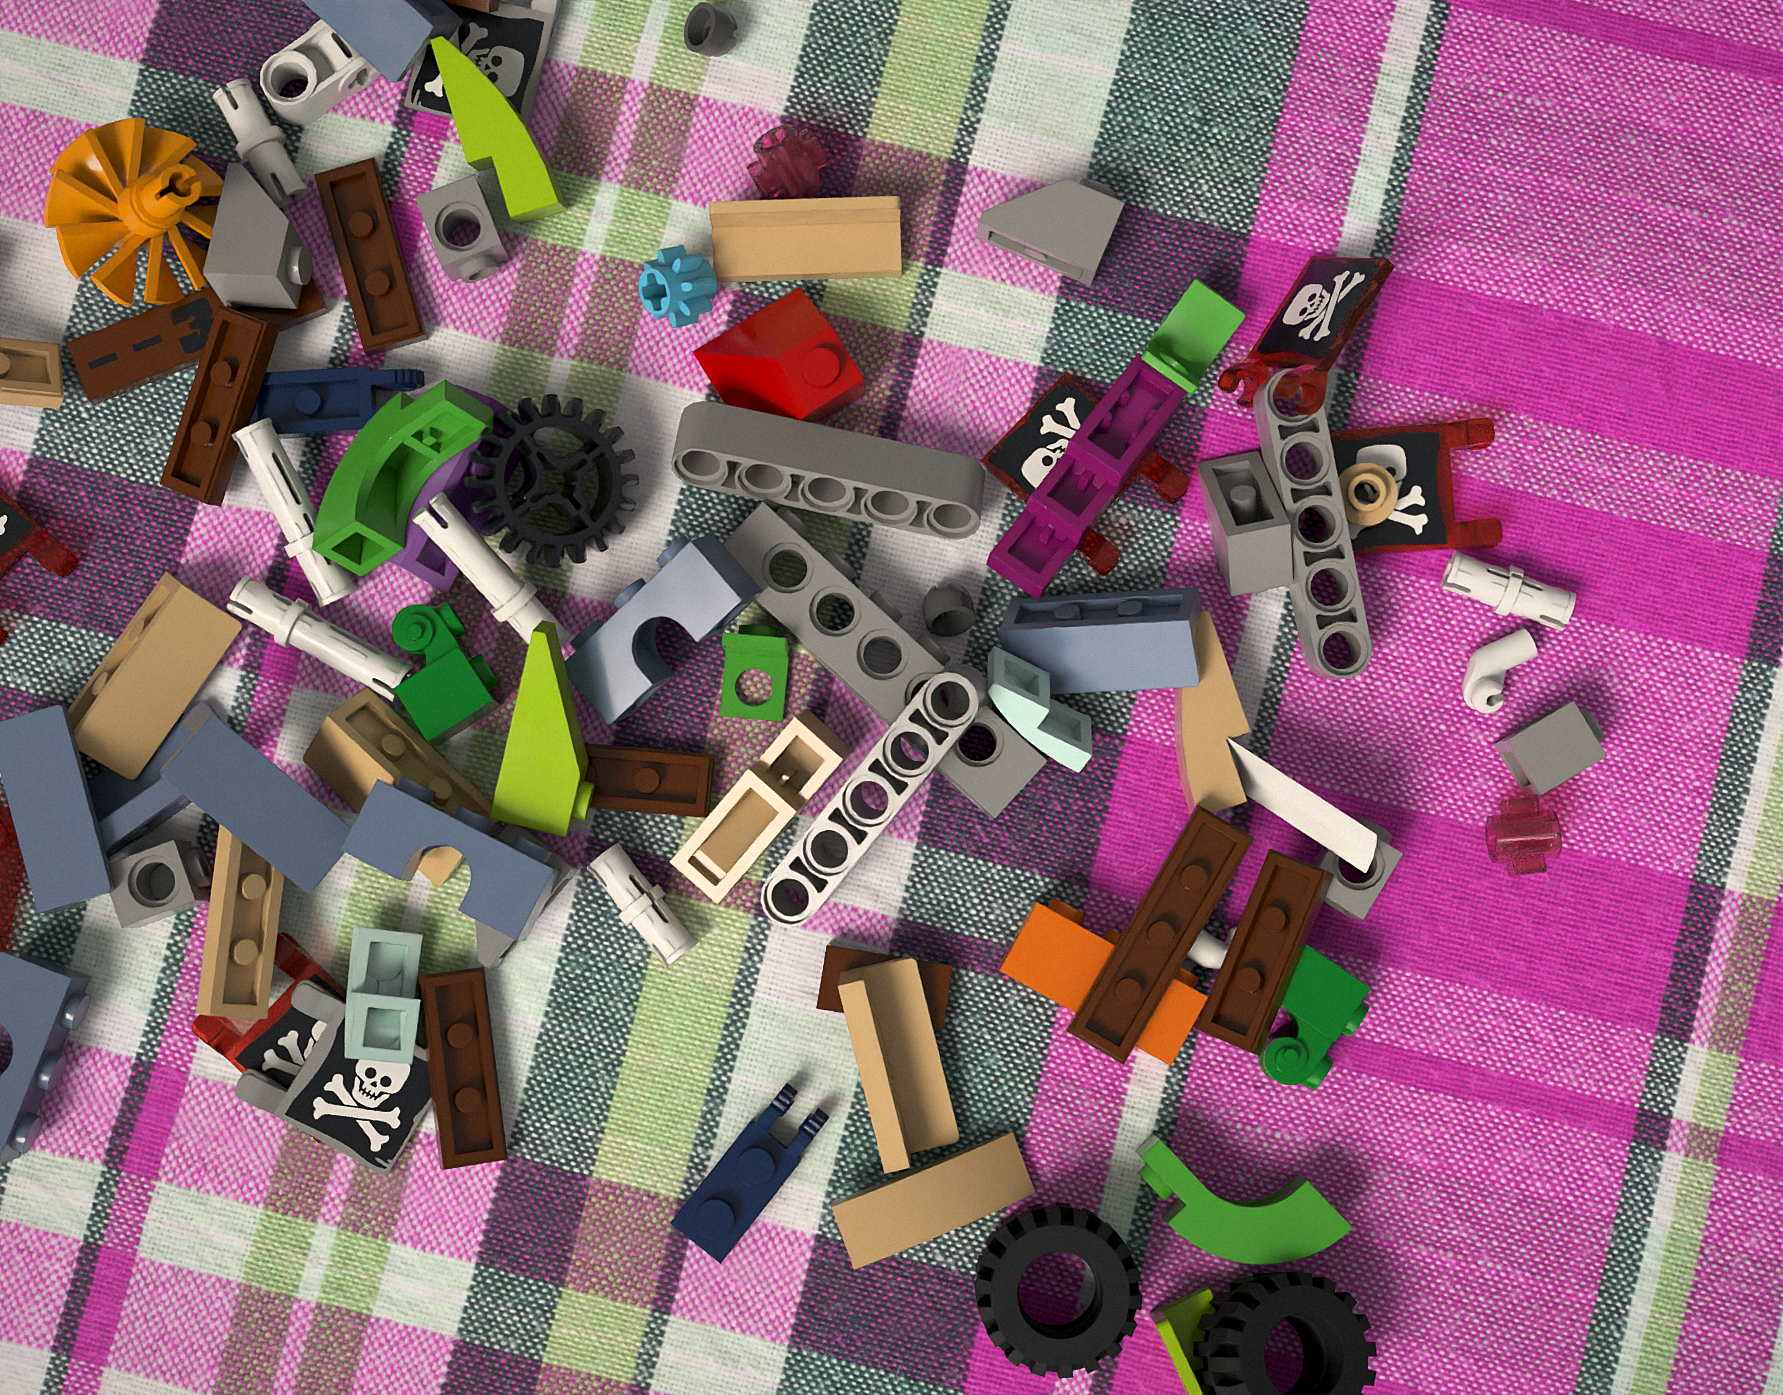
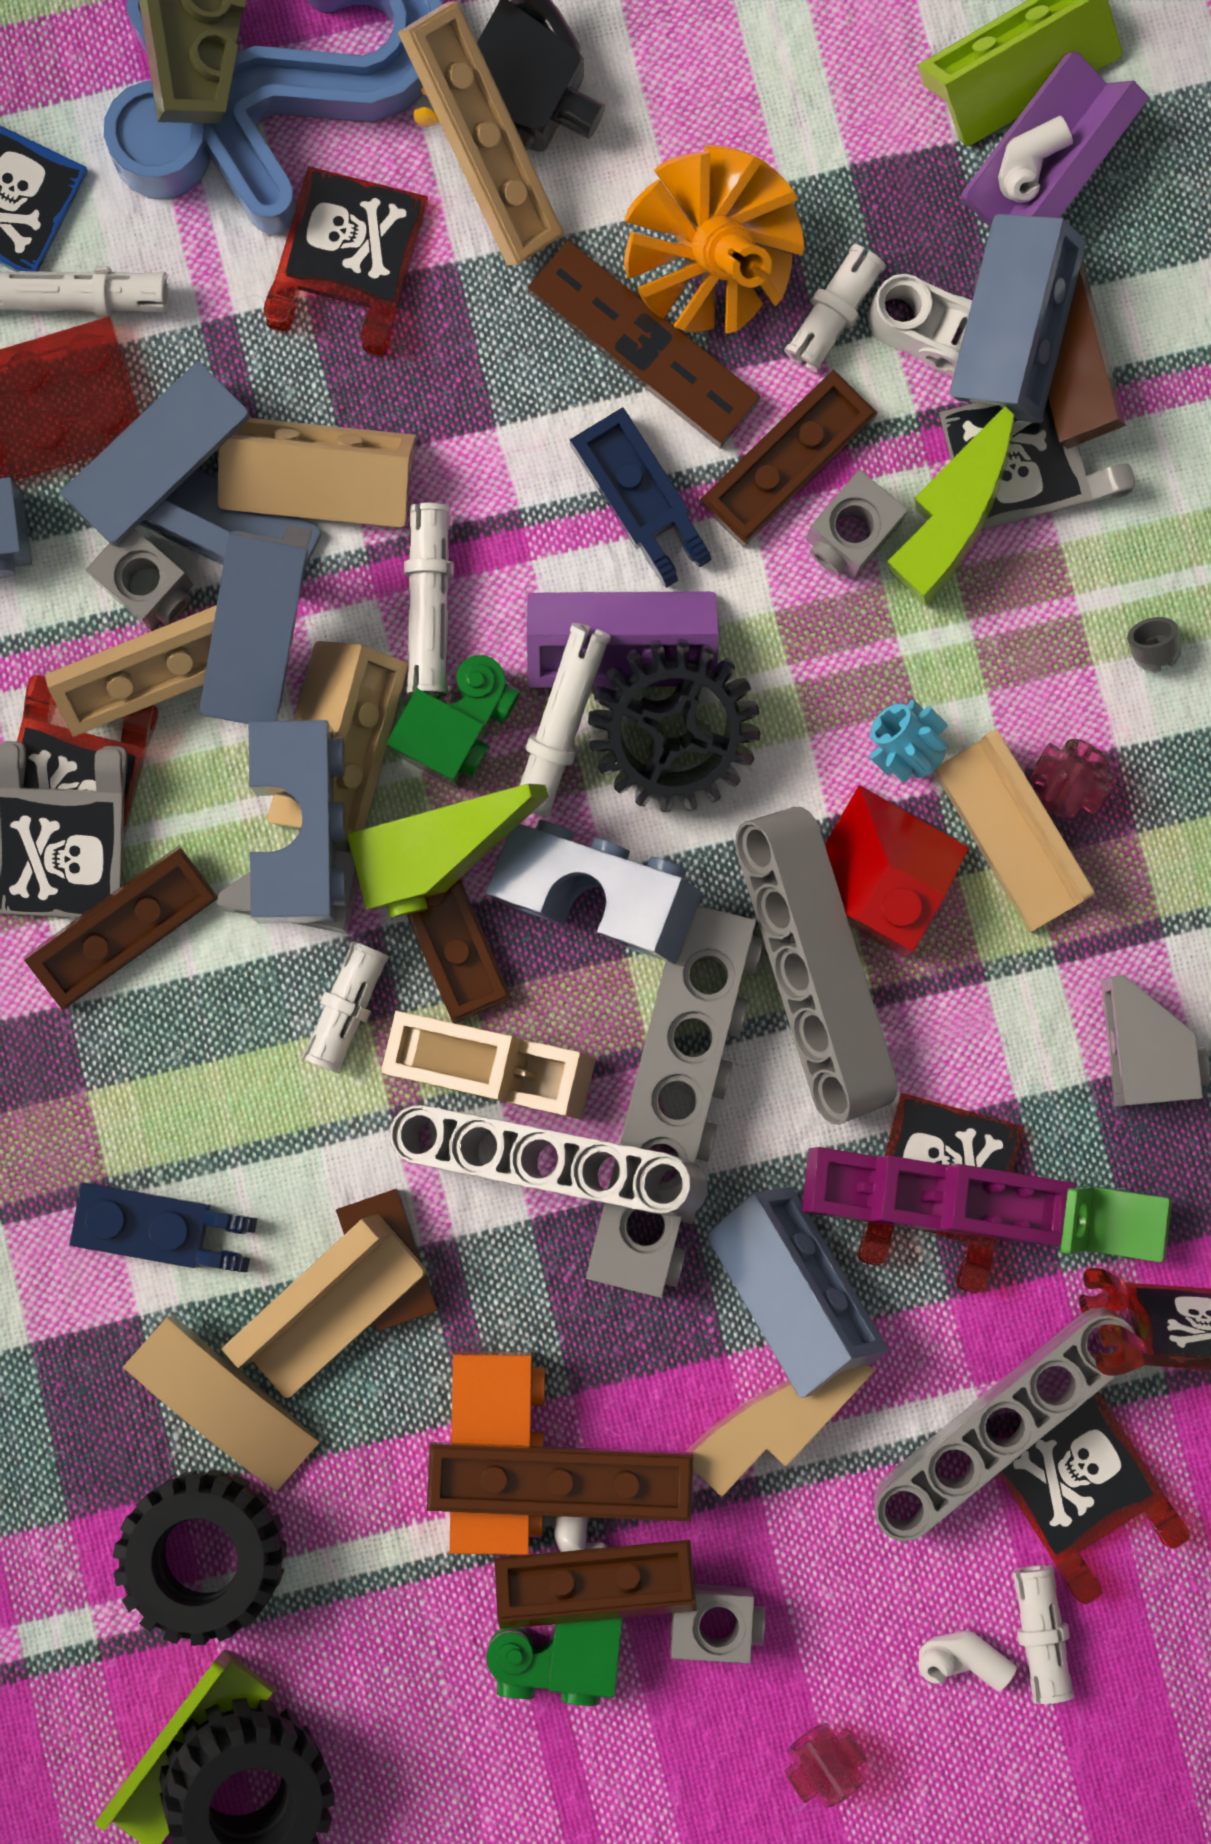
camera: 65 degrees right, 0 degrees up
(219, 405) = (584, 401): reddish brown tile -> none
(254, 248) = (737, 355): light grey slope -> none
(292, 509) = (525, 518): white pin -> none
(381, 994) = (145, 824): light aqua slope -> none
(385, 470) = (604, 576): bright green arch -> none
(755, 649) = (624, 987): bright green bracket -> none
(948, 610) = (751, 1136): dark grey hinge -> none
(1025, 701) = (695, 1278): light aqua slope -> none
(1246, 524) = (973, 1362): light grey slope -> none
(1257, 1231) = (344, 1708): bright green arch -> none
(1305, 810) = (740, 1554): white sticker -> none
(1386, 487) = (1077, 1469): tan plate -> none
(1552, 748) = (920, 1750): light grey brick -> none

